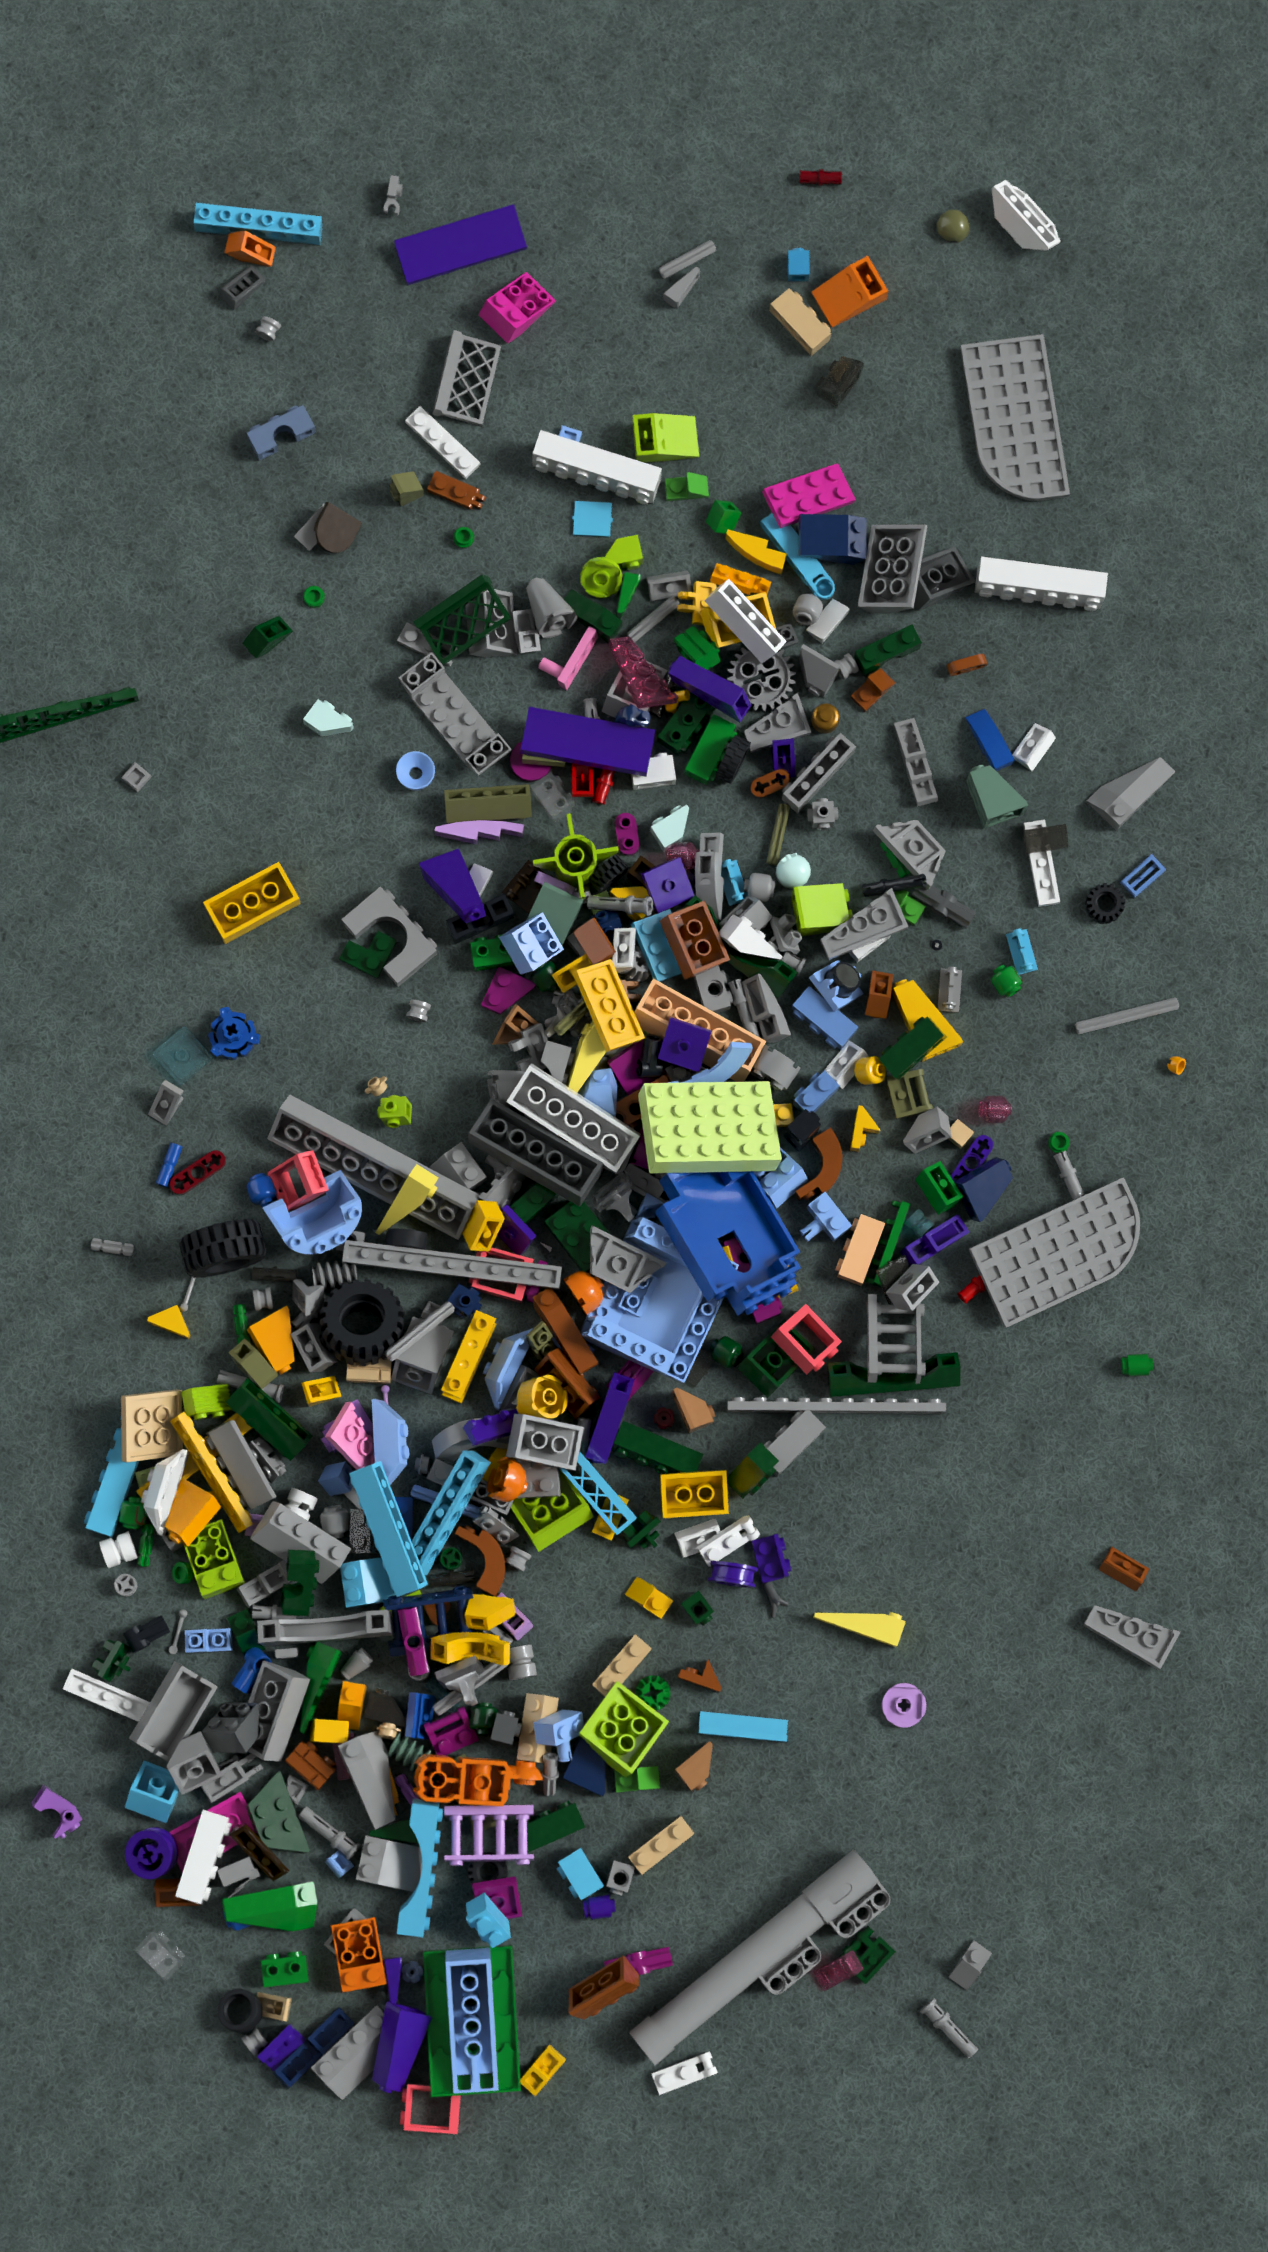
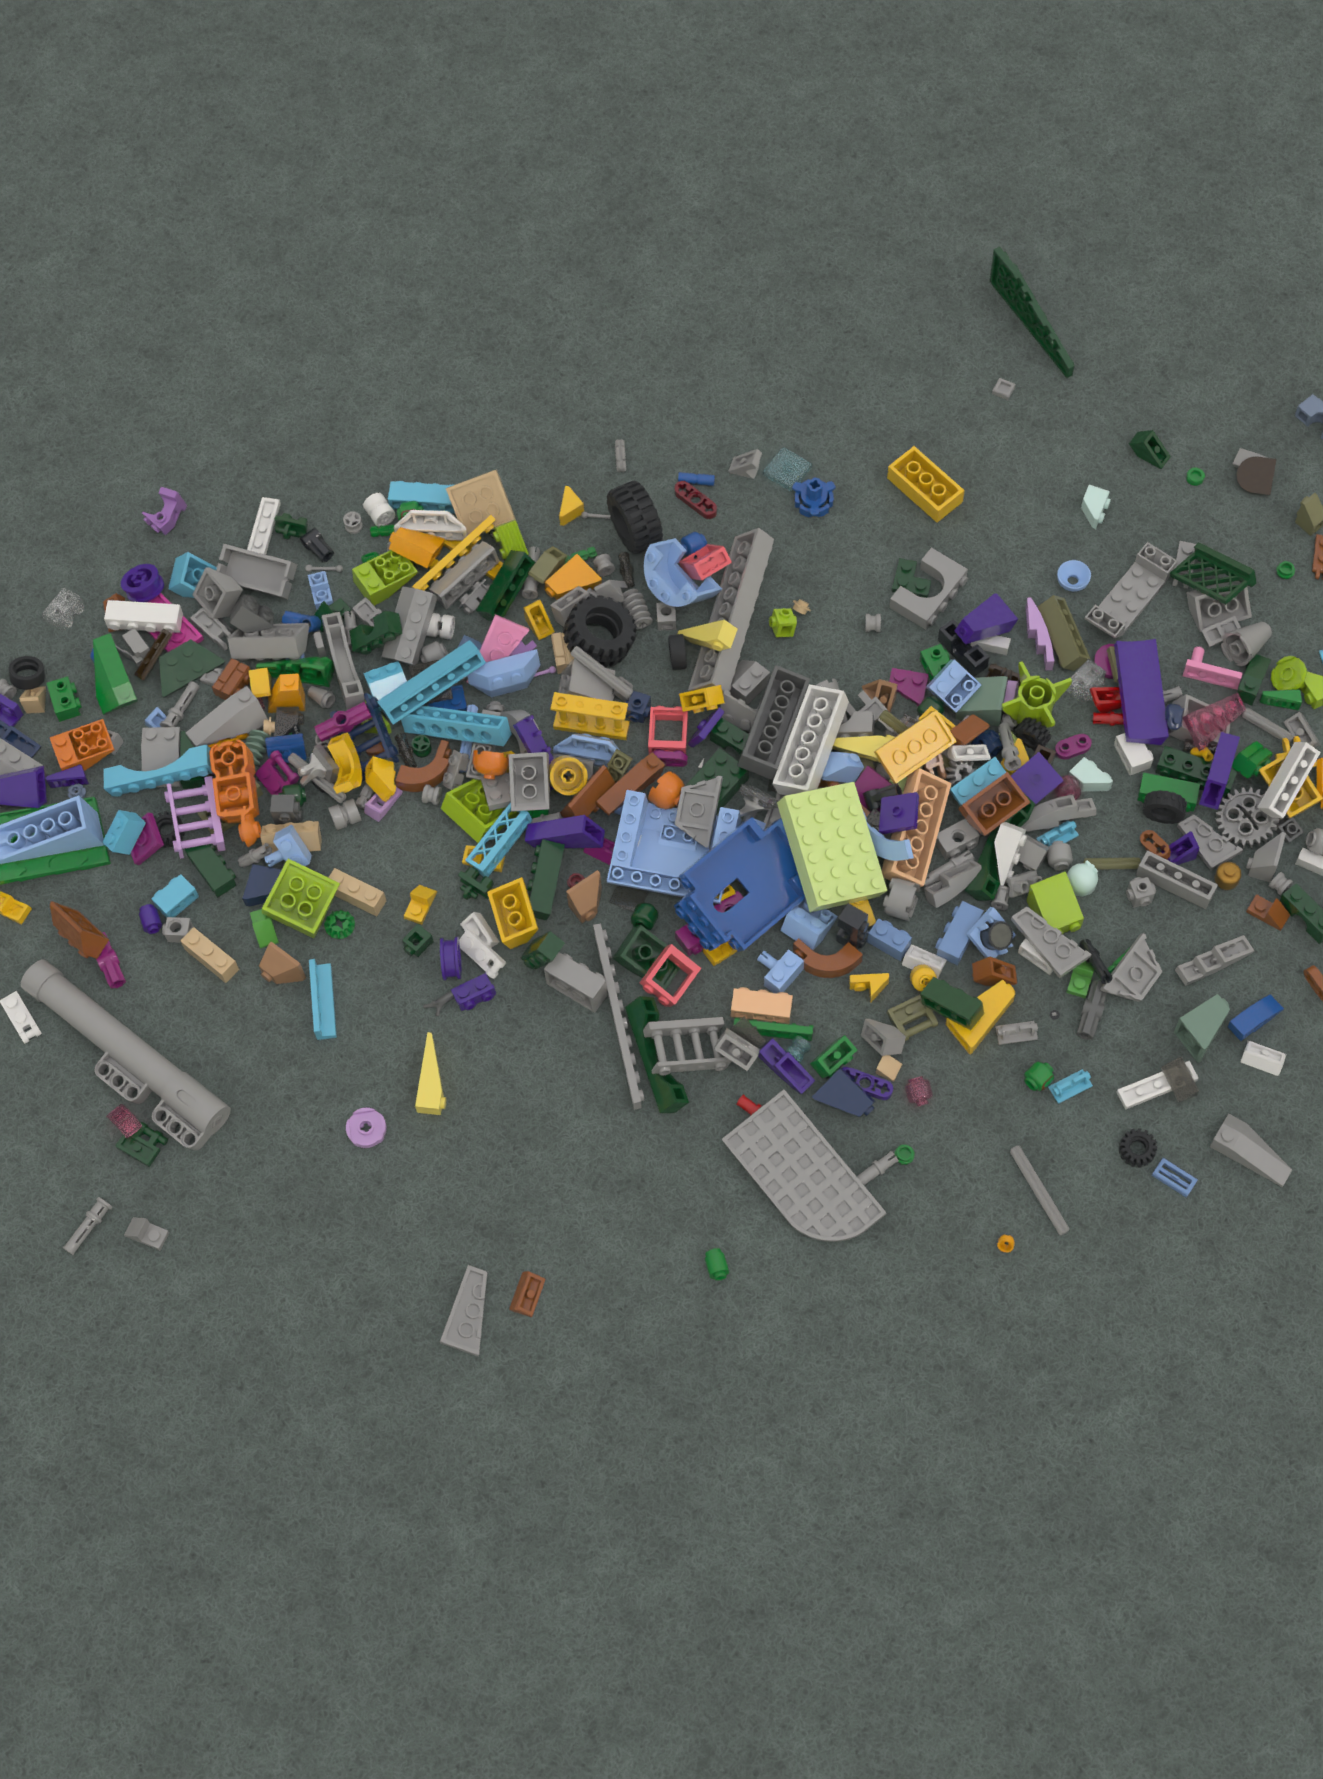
camera: 90 degrees right, 15 degrees down
(452, 1264) = (664, 687): light grey plate -> none
(707, 1680) = (359, 959): dark orange slope -> none

